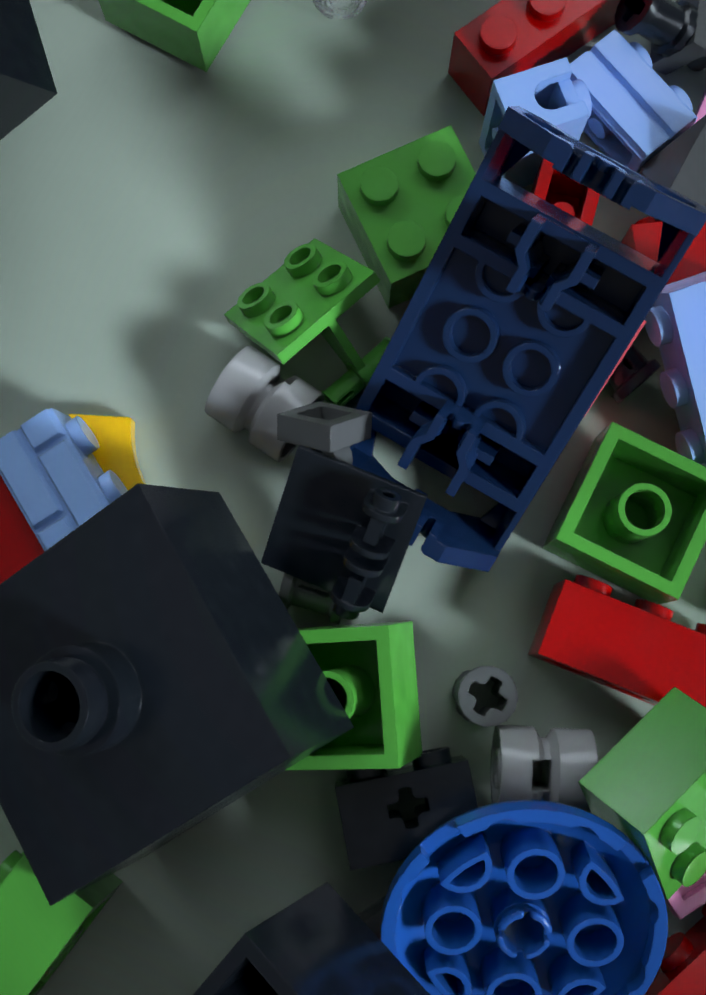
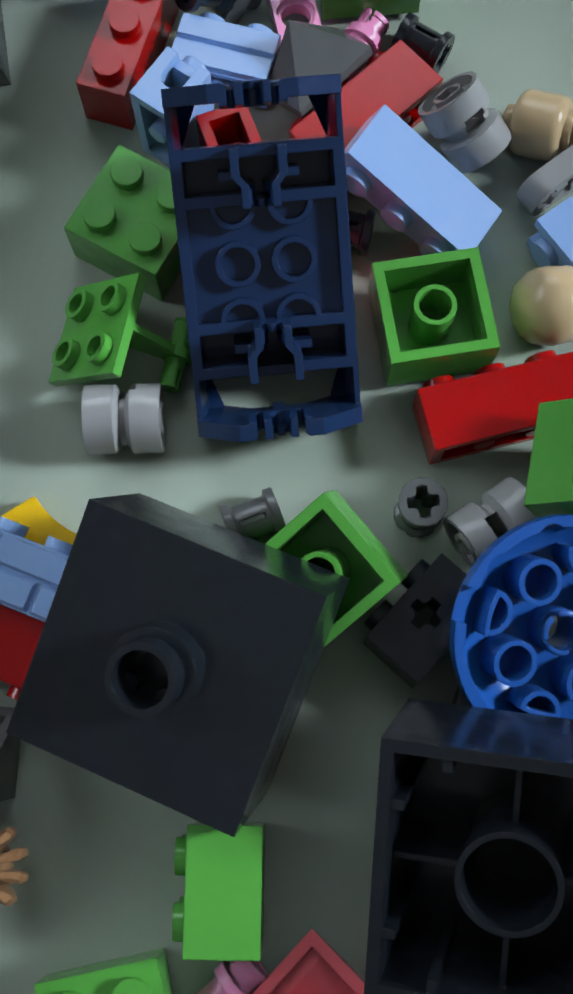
camera: 35 degrees left, 5 degrees down
(325, 428) = (183, 398): dark grey tile -> none
(342, 531) = (244, 457): black hinge -> none

